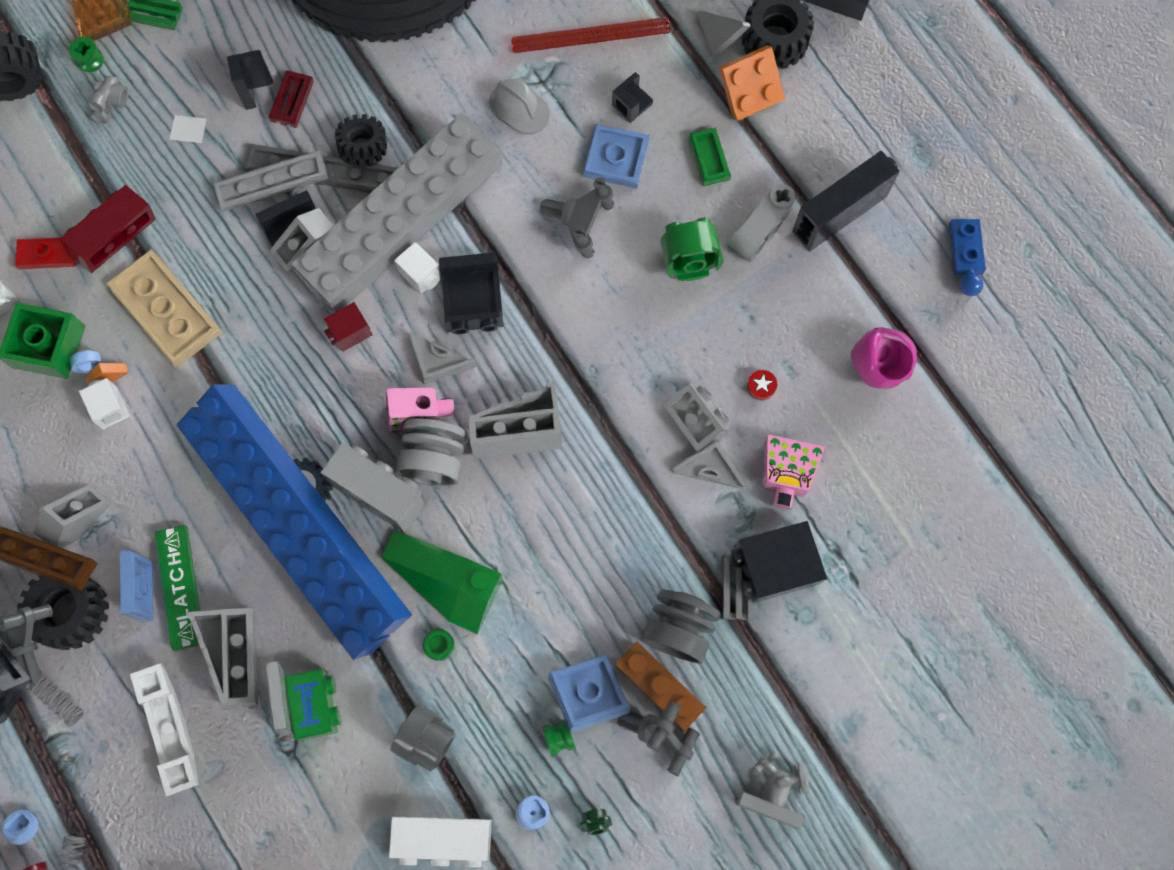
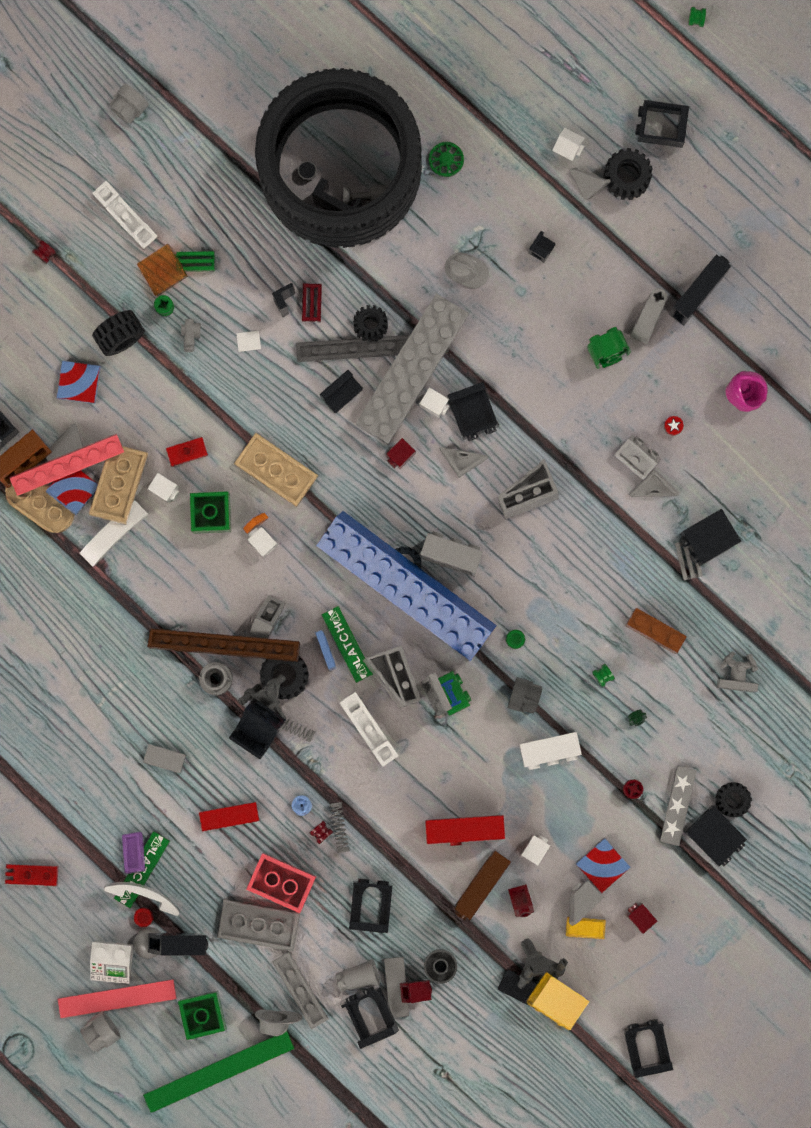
camera: 10 degrees left, 10 degrees up
(84, 361) = (241, 519): light blue tile -> none
(108, 228) = (224, 426): dark red brick -> none
(270, 180) = (318, 366): light grey tile -> none
(300, 236) = (354, 402): light grey slope -> none
(414, 403) = (454, 499): bright pink torso -> none
(431, 452) = (480, 526): light grey wheel -> none
(446, 580) = (513, 600): green wedge -> none
(532, 813) = (599, 722): light blue tile -> none
(580, 214) = (529, 340): dark grey axle -> none
(588, 693) = (614, 645): medium blue tile -> none
(590, 35) = (501, 205): clear red axle -> none
(616, 155) = (540, 290): medium blue tile -> none
(659, 731) = (663, 657): dark grey axle -> none
(682, 621) = (660, 592): dark grey wheel -> none
(709, 156) = (603, 275): green tile -> none
(752, 83) = (620, 218): orange plate -> none
(789, 468) = (703, 477): bright pink torso -> none
(968, 254) = (787, 303): blue plate -> none

